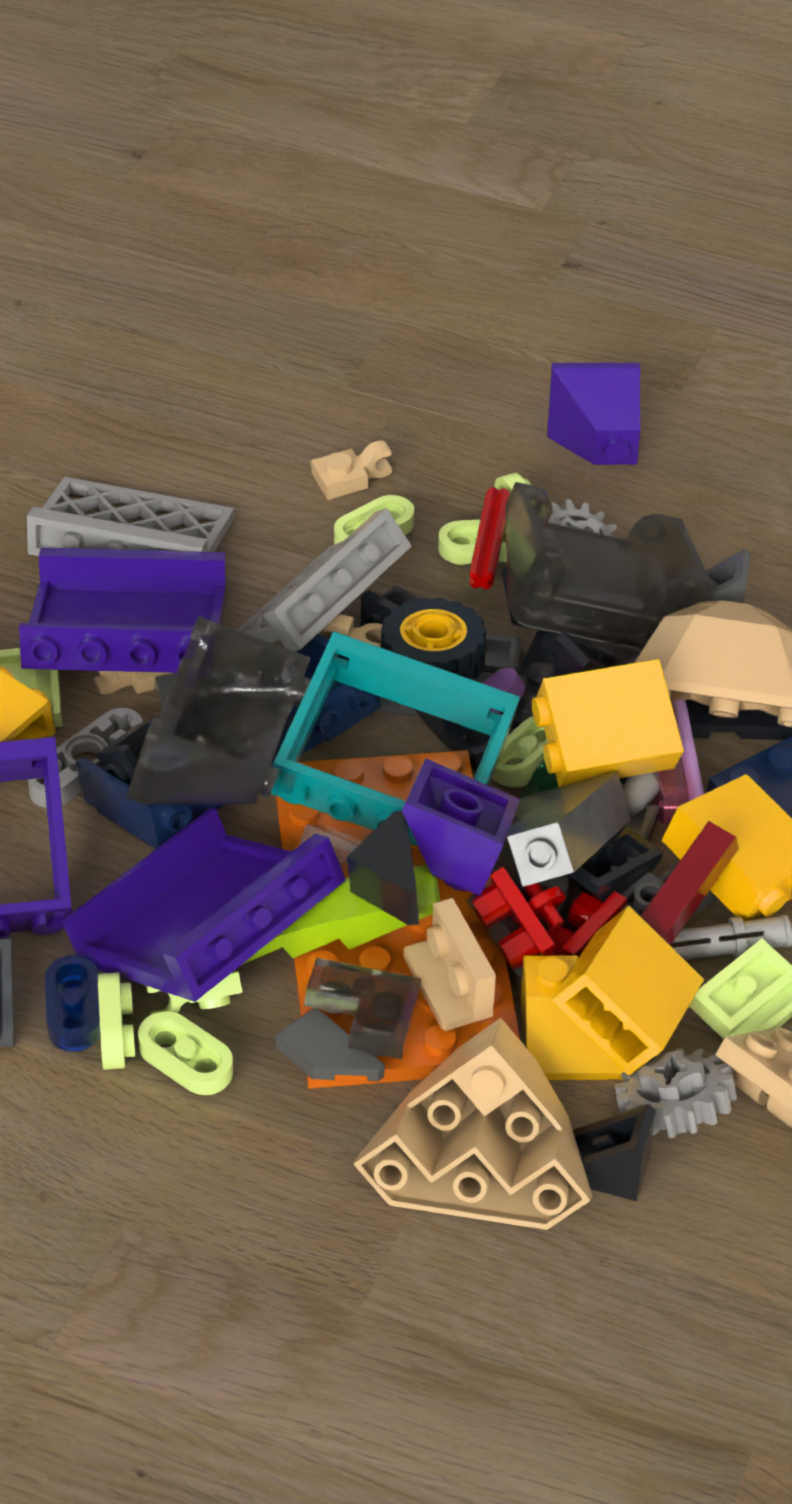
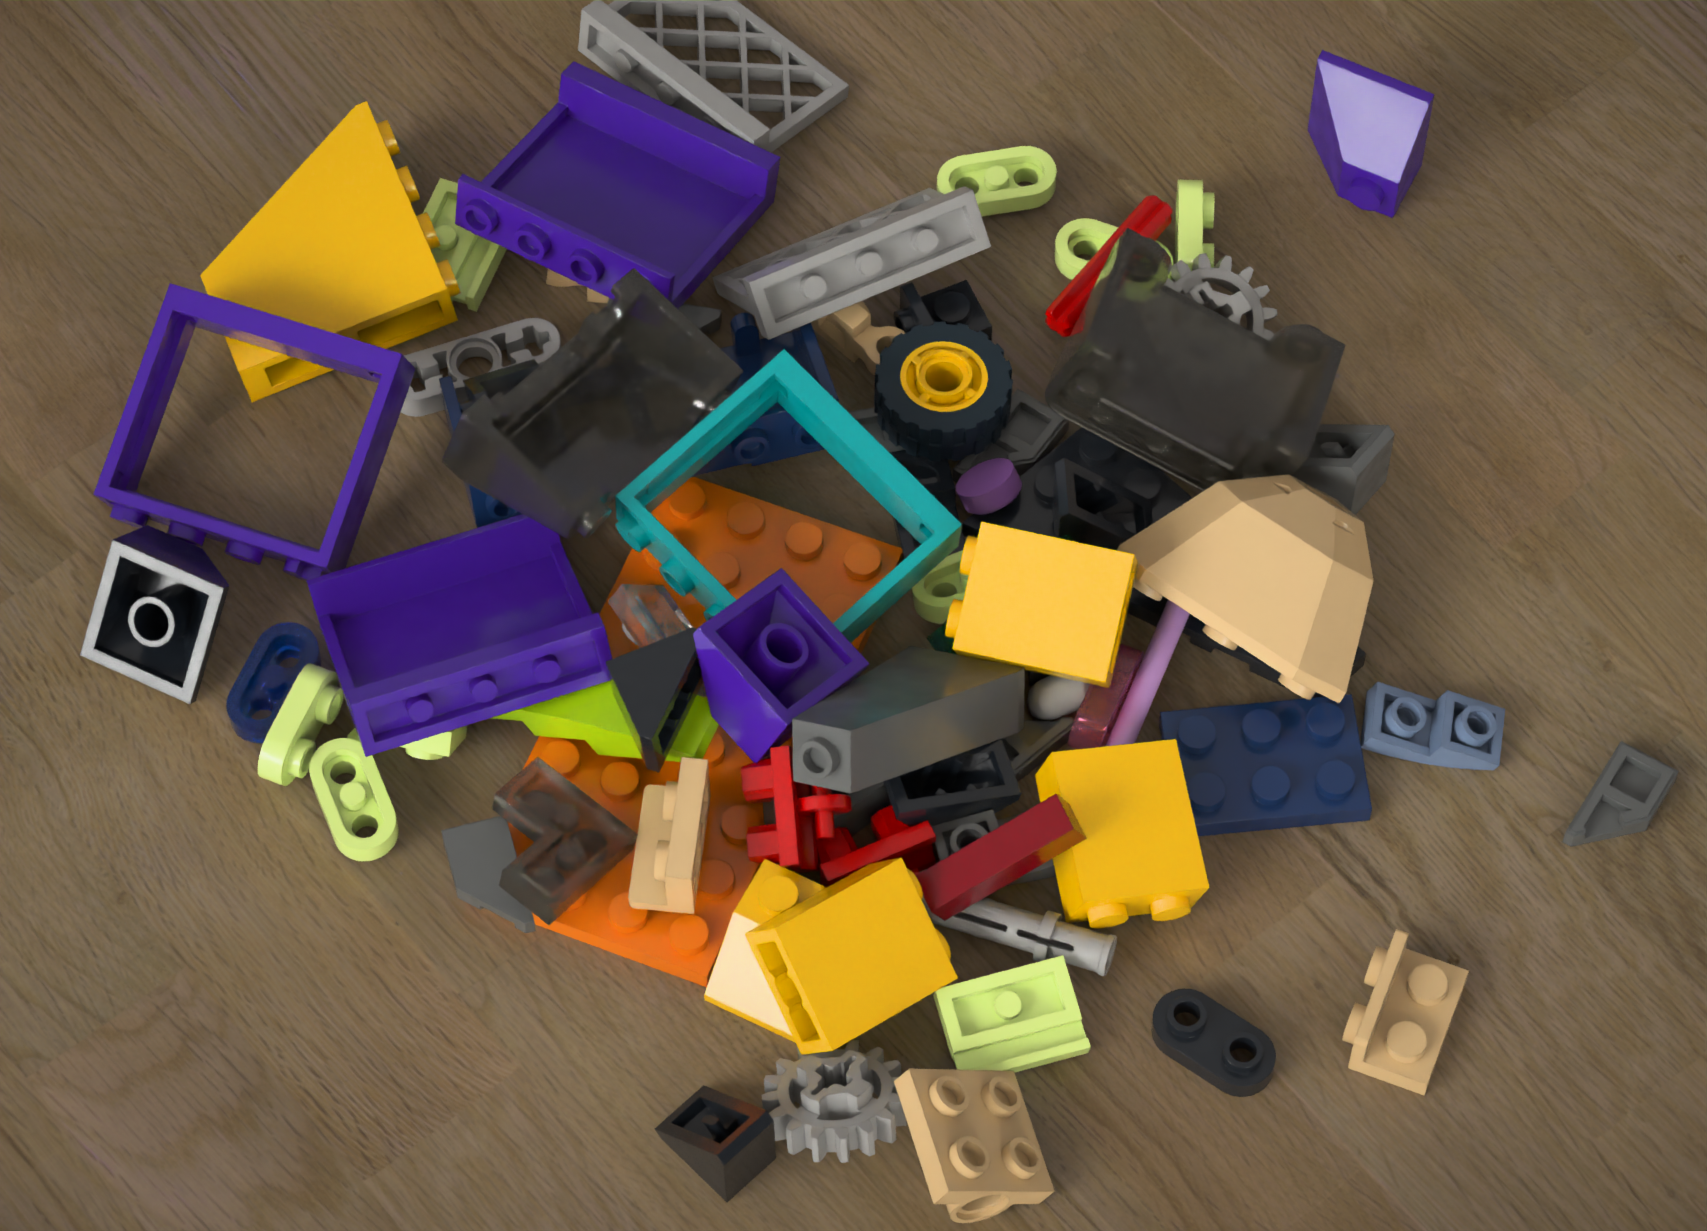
camera: 30 degrees right, 15 degrees up
(347, 473) = (1016, 84): tan plate -> none
(481, 1140) = (592, 1055): tan brick -> none

